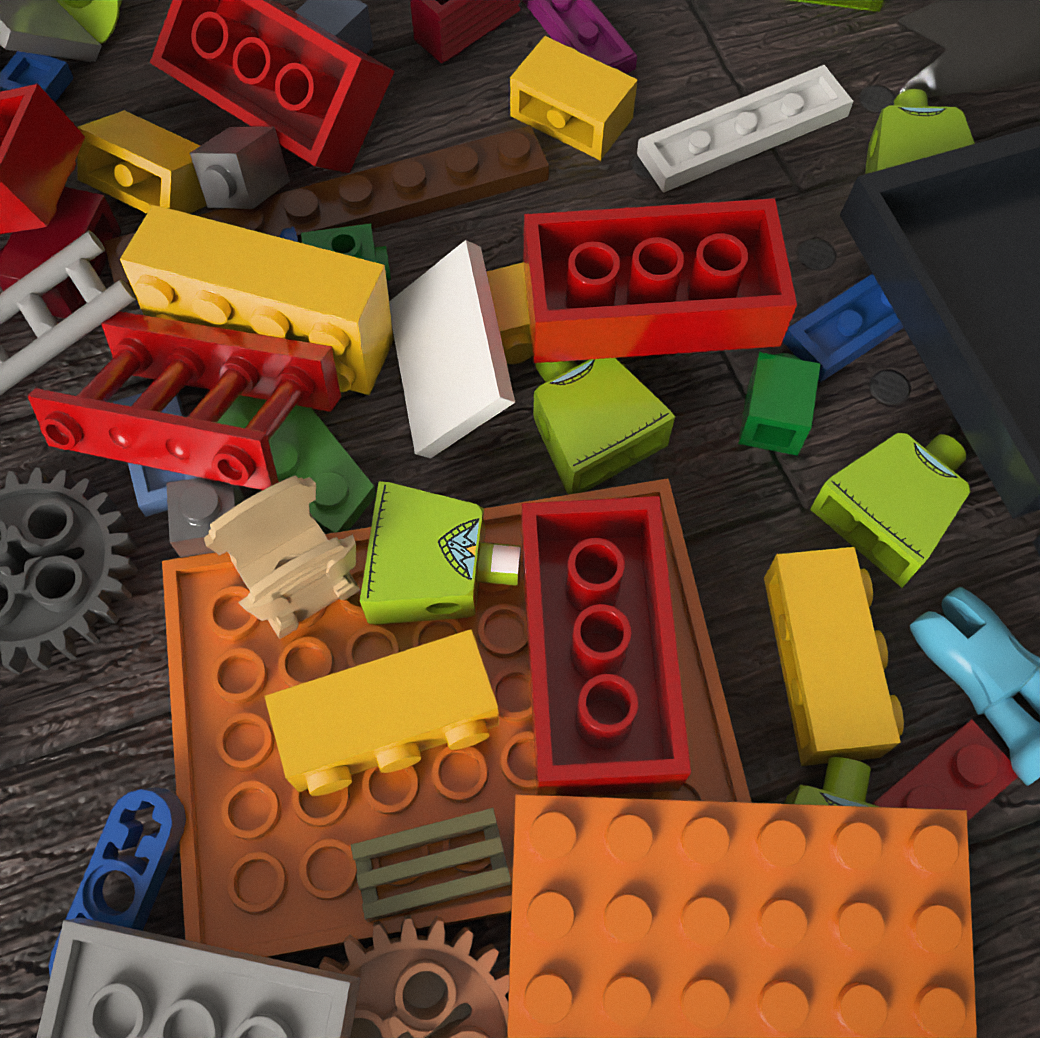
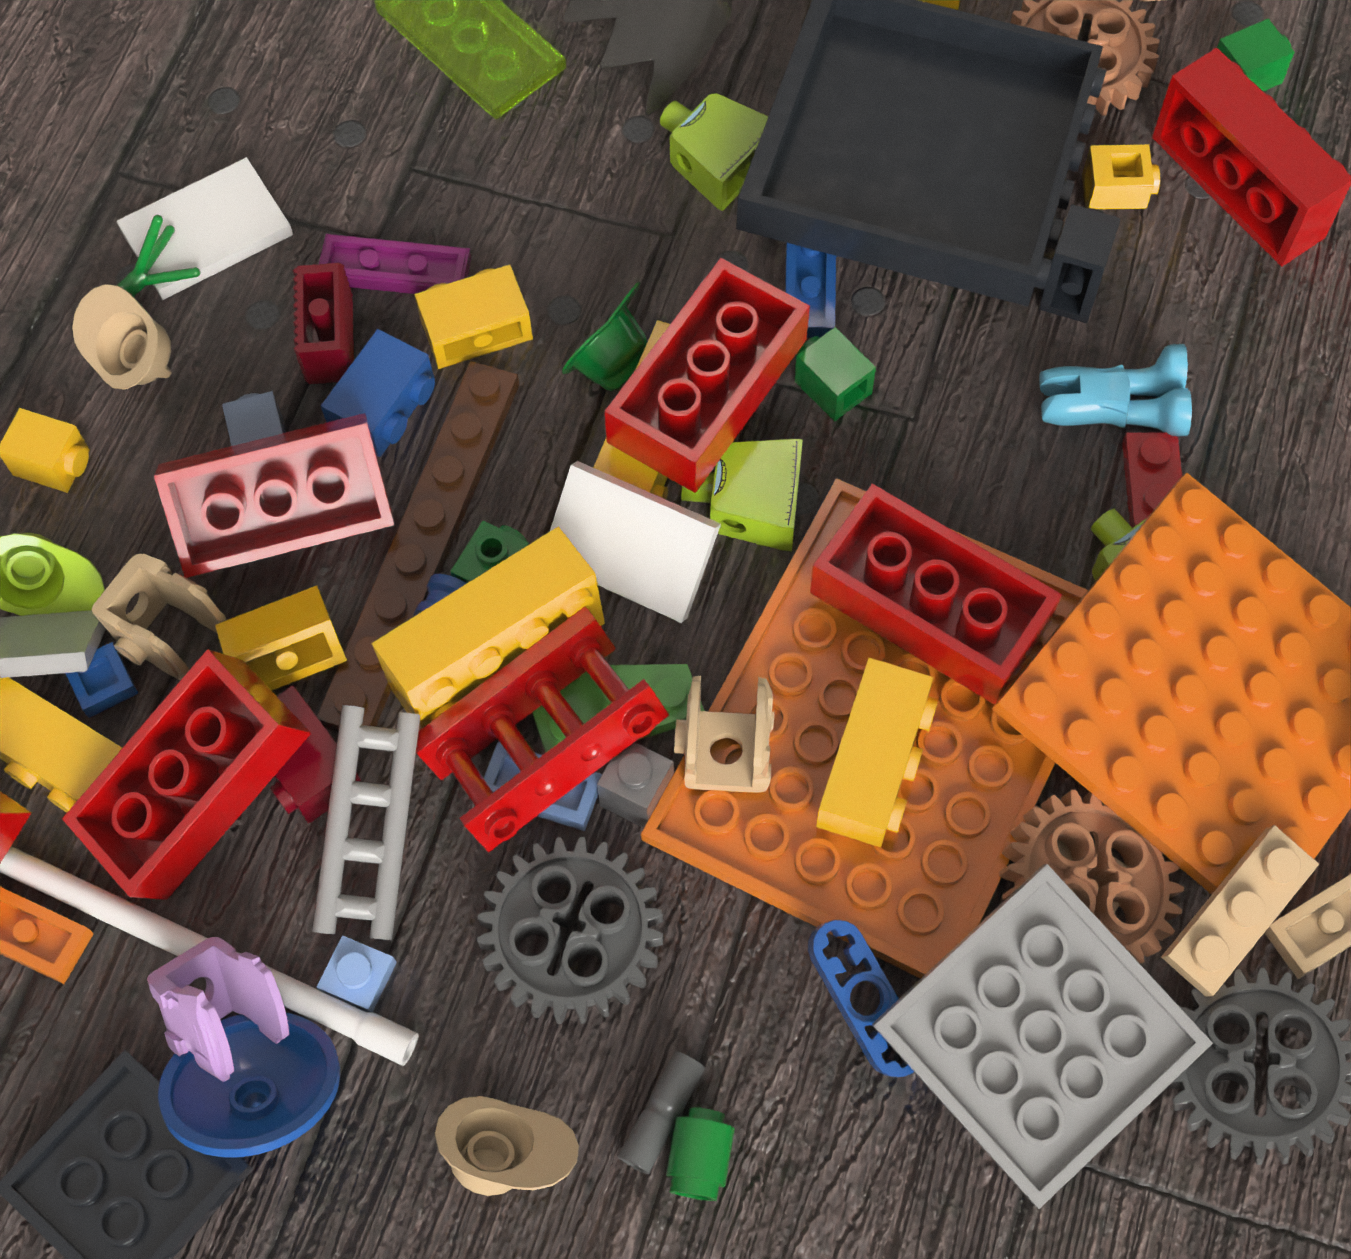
camera: 50 degrees left, 0 degrees up
(78, 68) = (155, 588): none -> tan piece
(240, 167) = (346, 576): flat silver brick -> none
(428, 834) = (1007, 754): olive tile -> none
(429, 557) = (790, 649): lime torso -> none
(441, 82) = (385, 384): none -> blue brick
(629, 190) = (613, 350): none -> green piece
(743, 128) = (596, 230): white plate -> none
(832, 656) = (1027, 477): yellow brick -> none
(896, 501) = (960, 361): lime torso -> none

